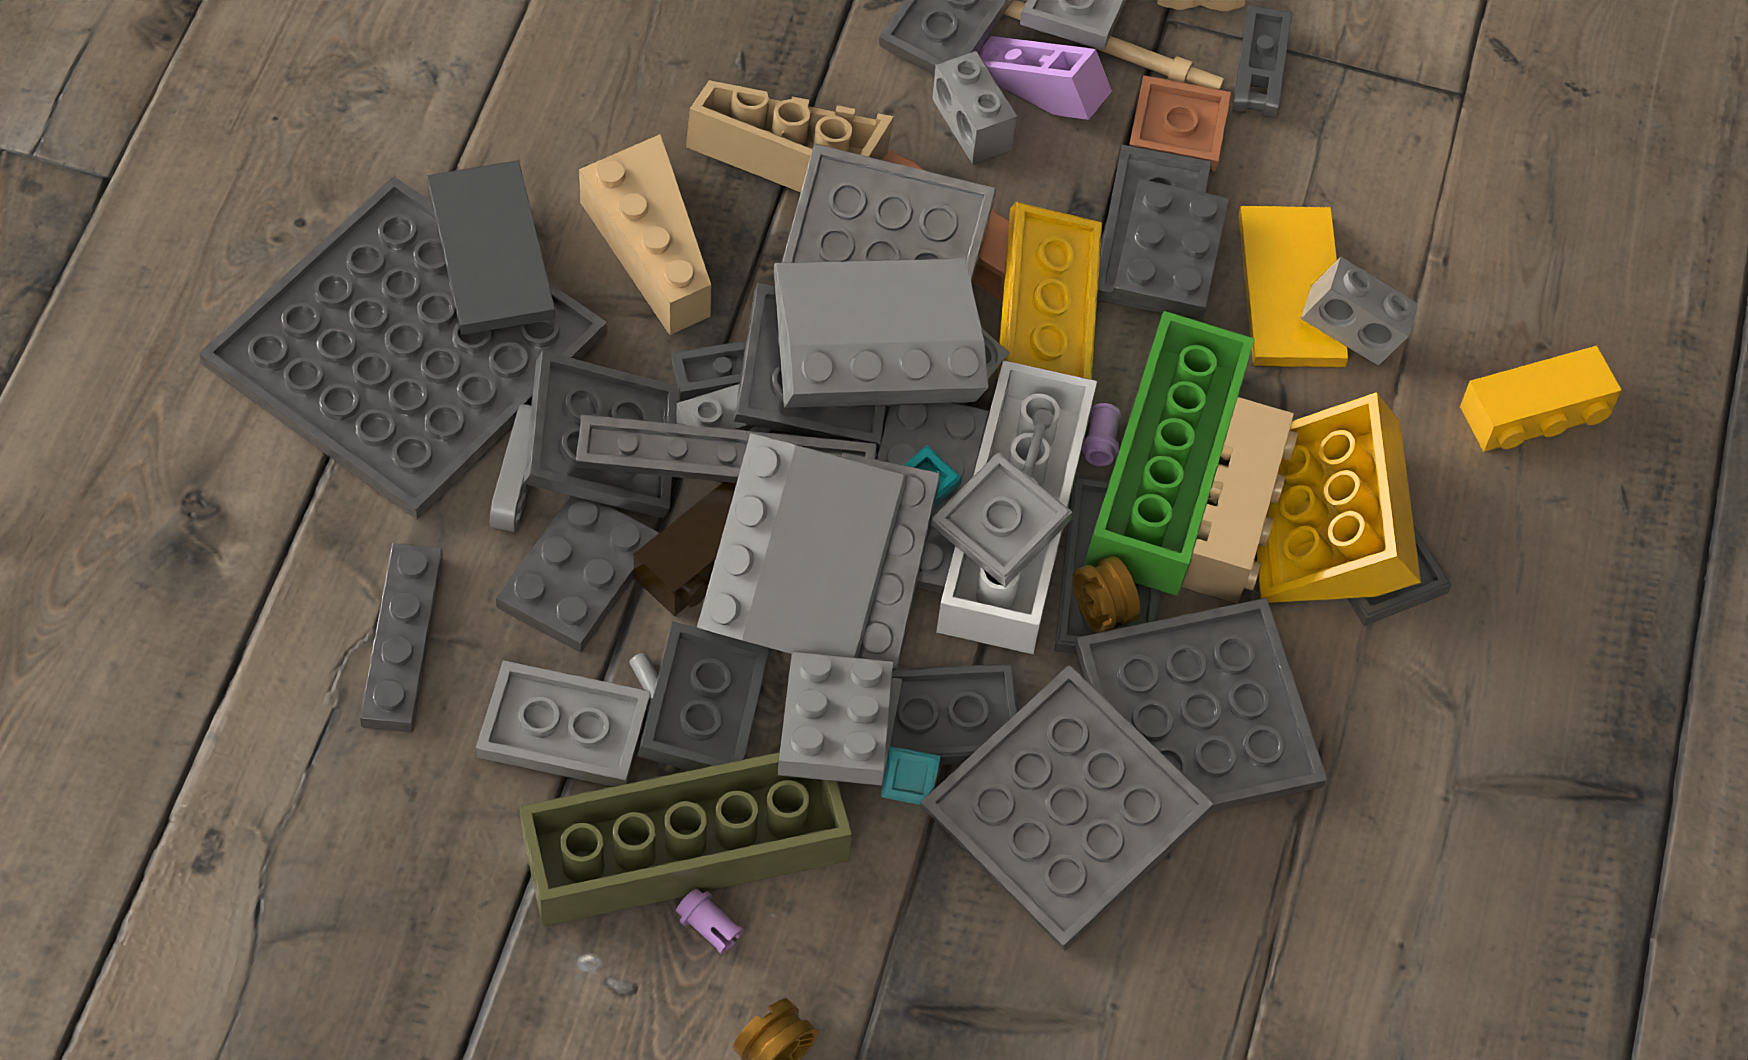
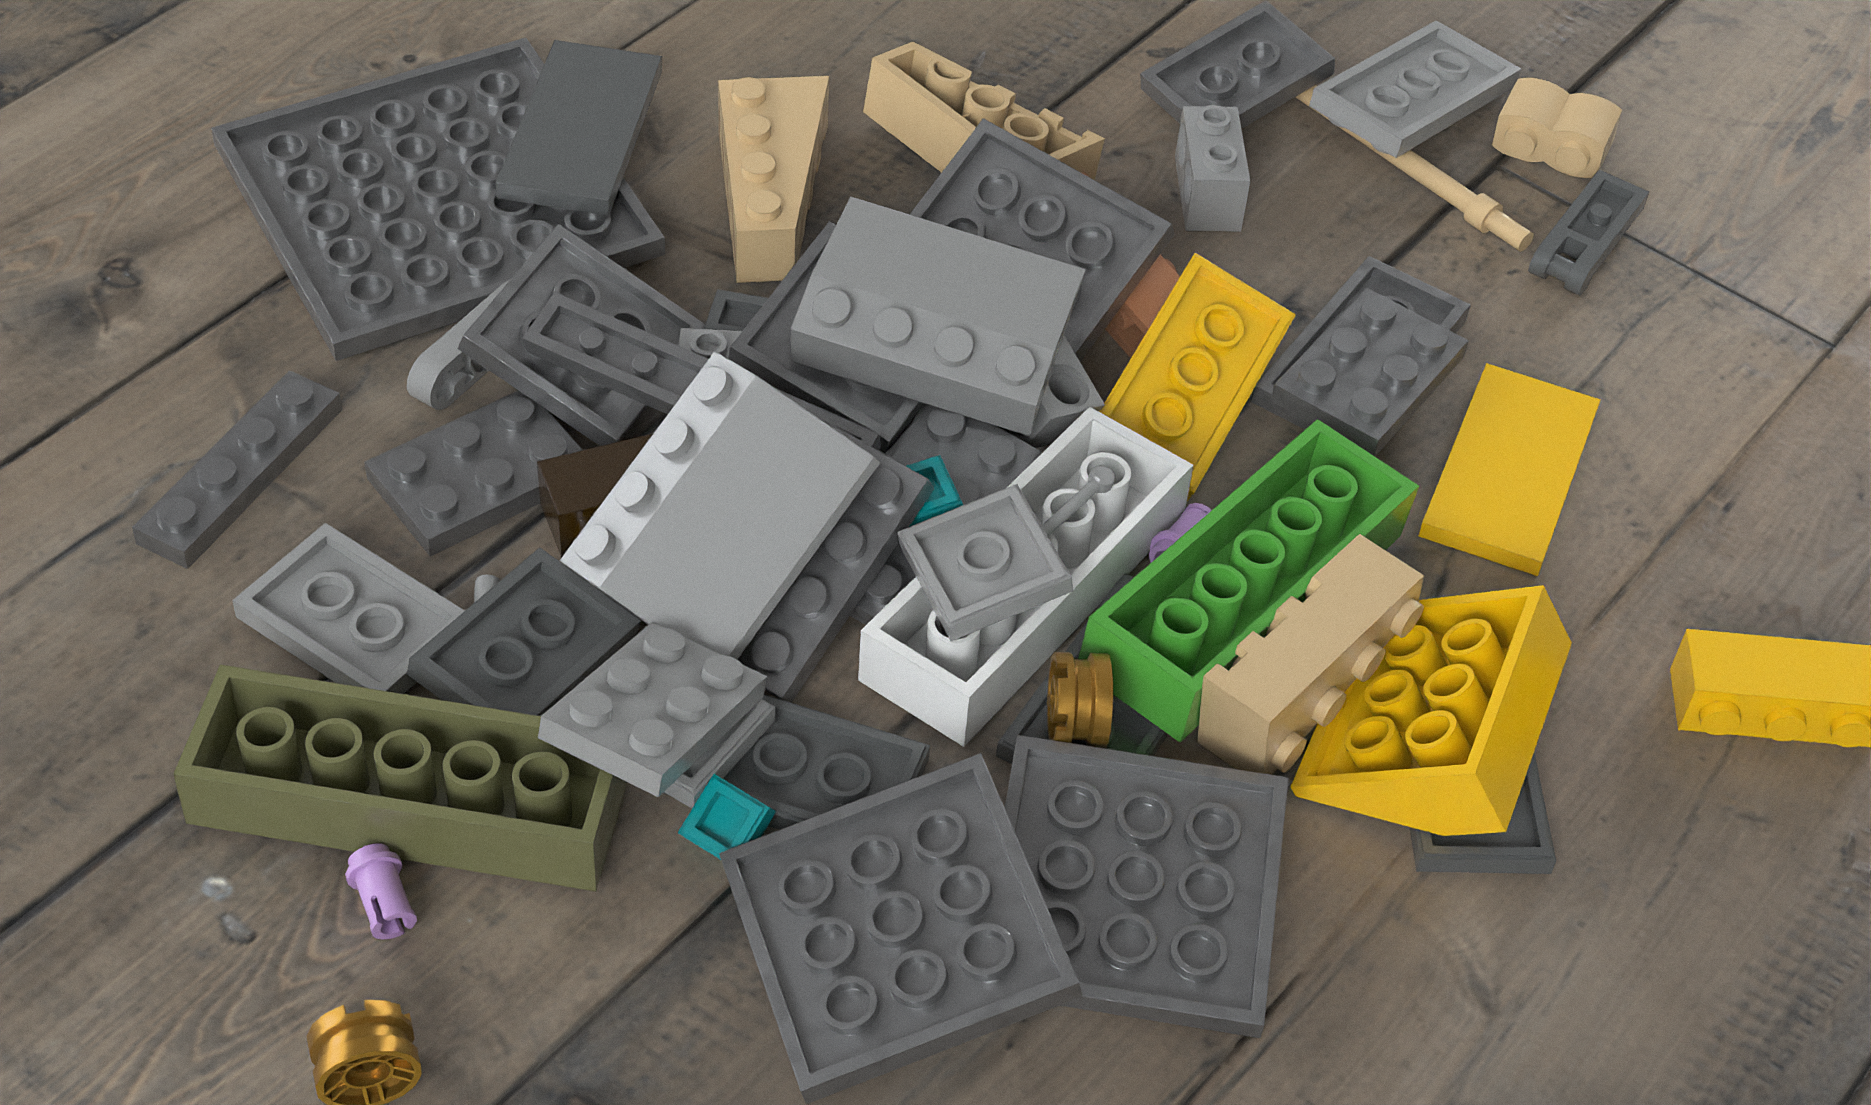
camera: 25 degrees right, 10 degrees down
(1049, 75) = (1319, 166): lavender slope -> none
(1180, 119) = (1458, 255): nougat plate -> none
(1359, 311) = (1576, 507): light grey brick -> none

